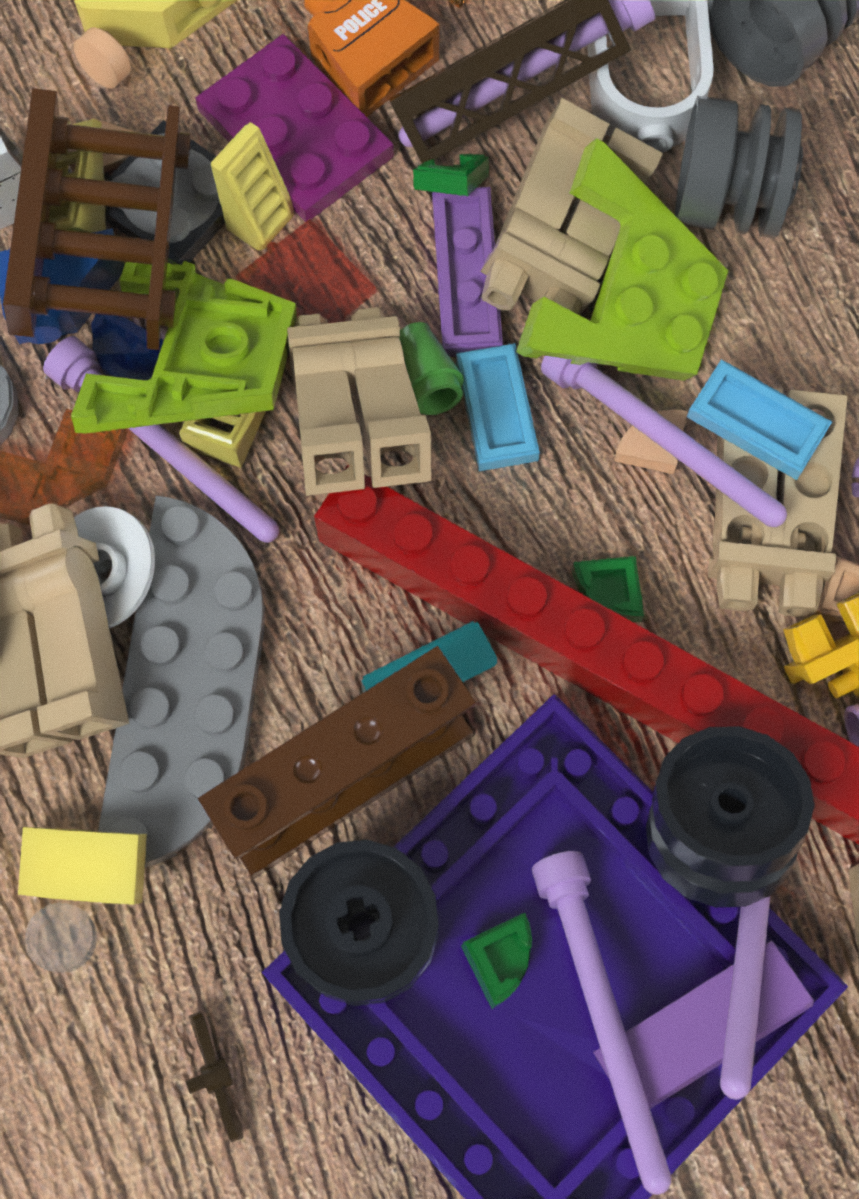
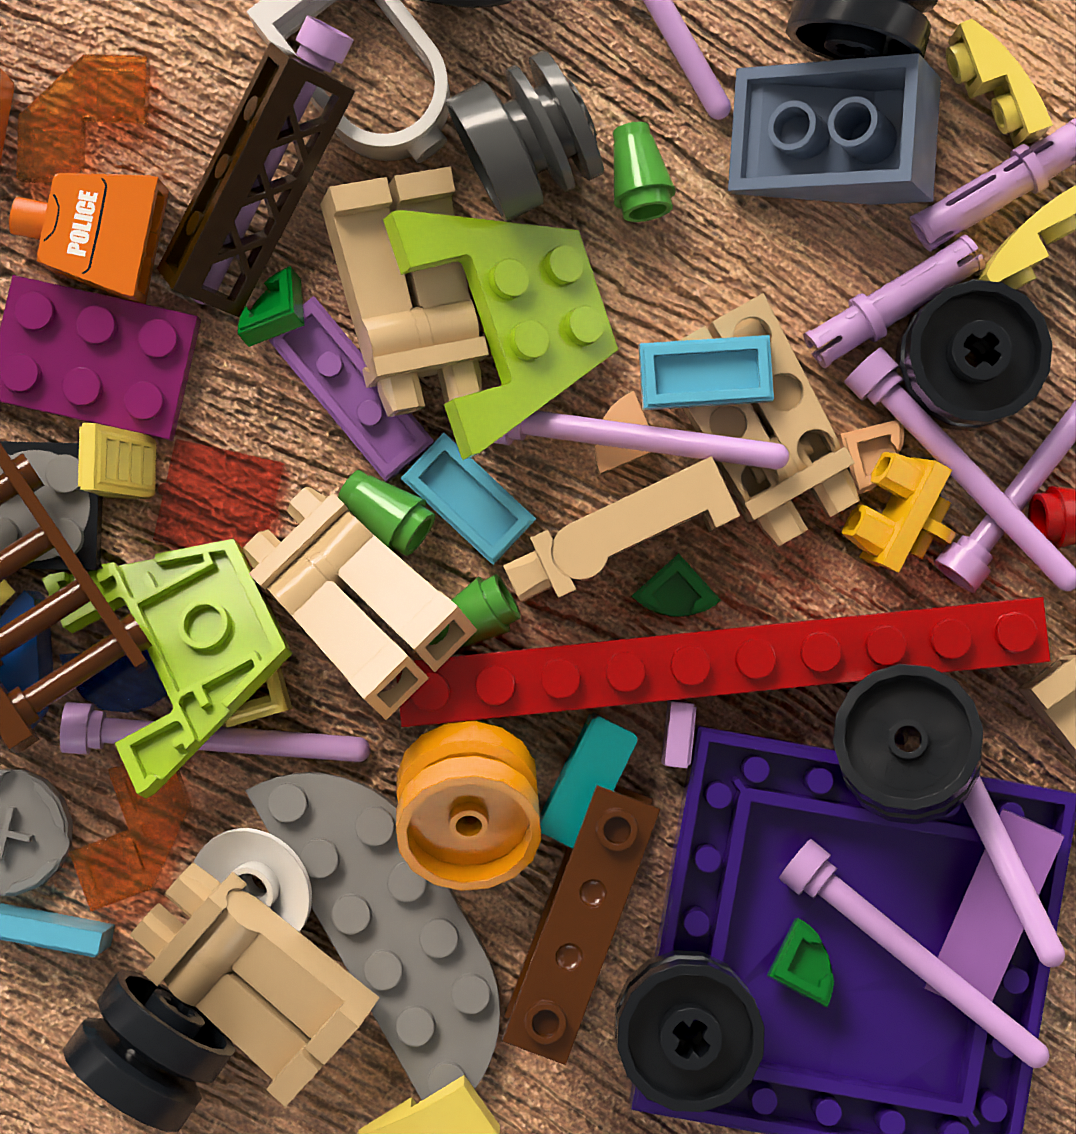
camera: 35 degrees left, 15 degrees up
(317, 614) = (467, 806): none -> light orange wheel
(450, 491) = (488, 608): none -> bright green cone
(533, 691) = (678, 734): none -> lavender tile
(604, 493) = (586, 544): none -> tan hips
(804, 264) = (640, 175): none -> bright green cone

